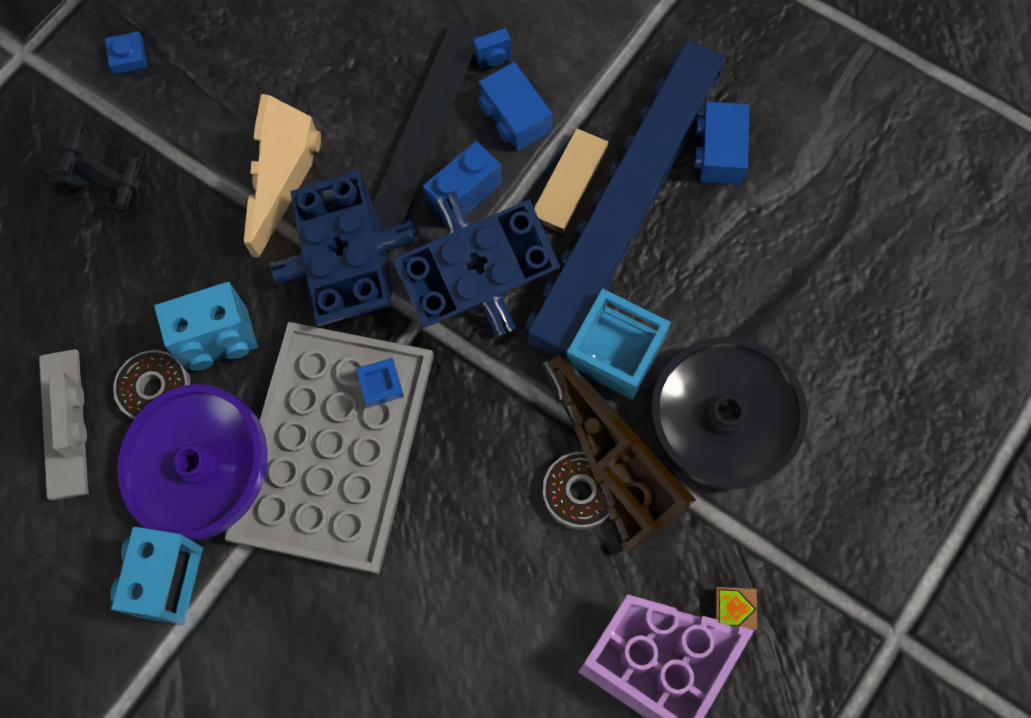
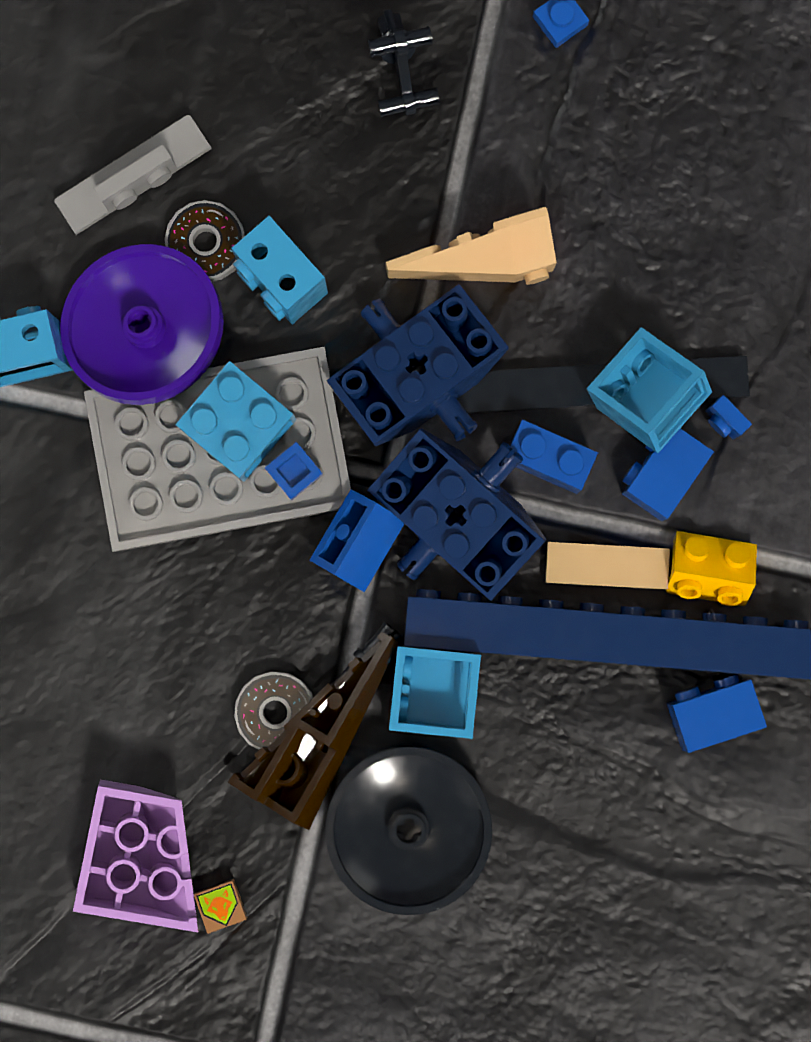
camera: 60 degrees right, 15 degrees up
(314, 411) = (236, 421): none -> dark azure piece
(444, 82) = (649, 390): none -> dark azure piece
(462, 356) = (357, 540): none -> blue brick
(606, 104) = (712, 569): none -> yellow bracket

